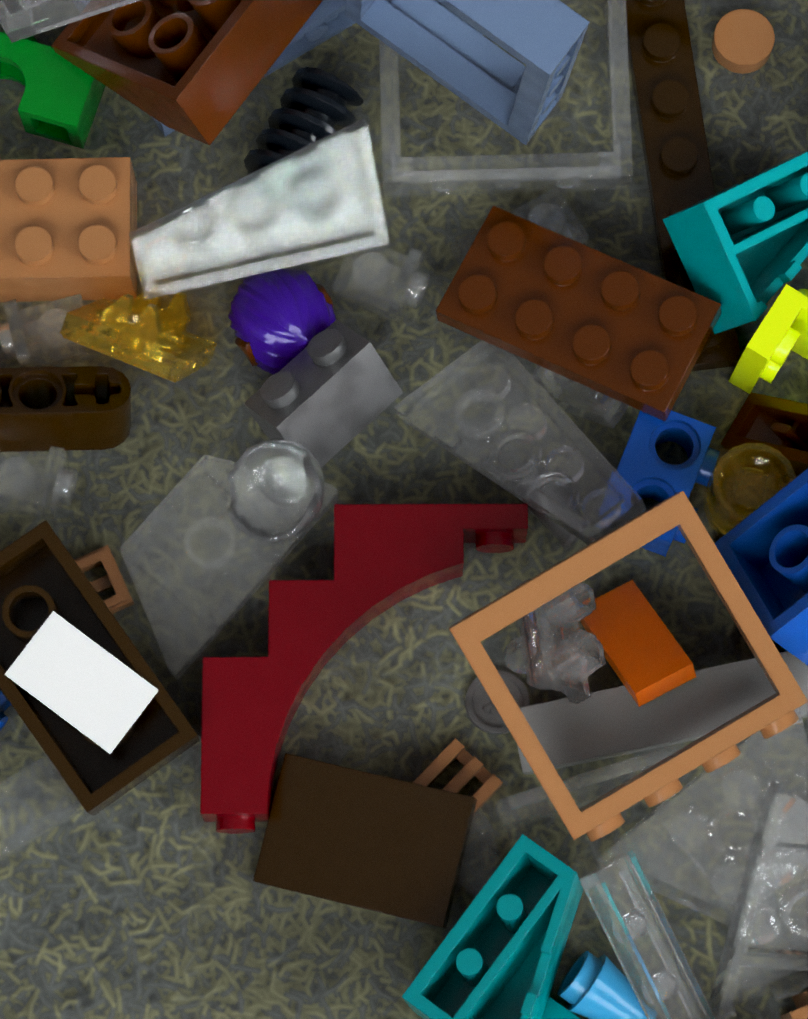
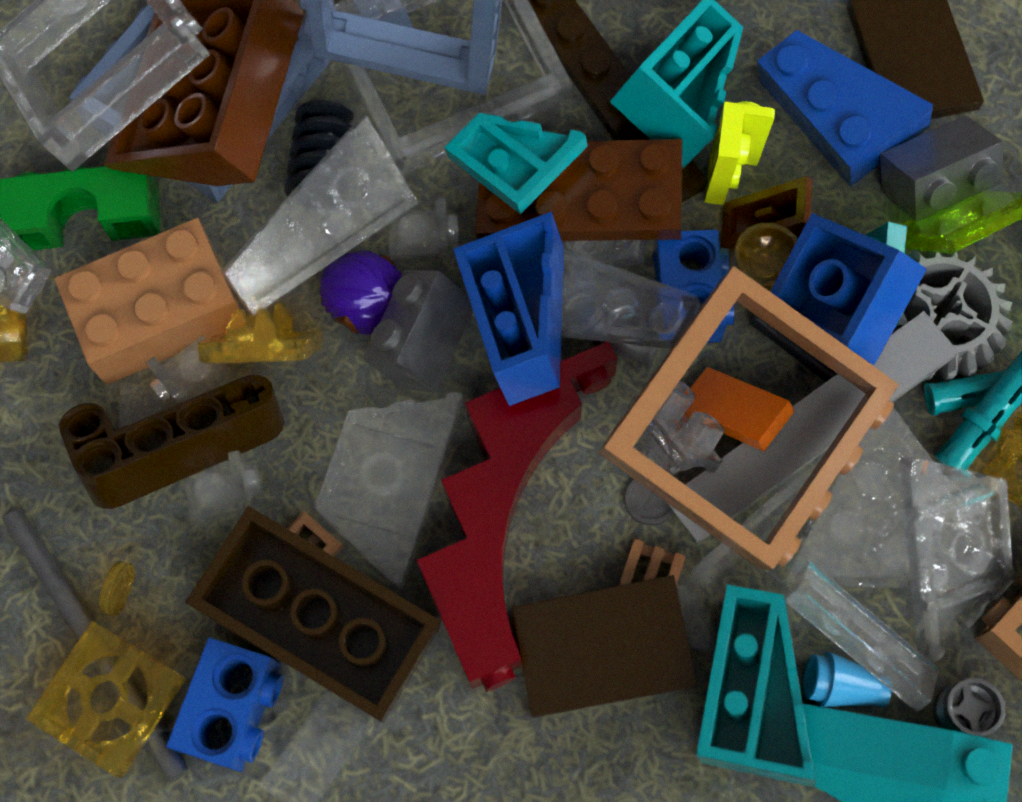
camera: 20 degrees left, 5 degrees down
(81, 682) = (331, 619): white sticker -> none
(275, 490) = (416, 409): clear hair -> none
(439, 420) = (518, 303): none -> blue wedge
(515, 244) = (513, 157): none -> teal wing

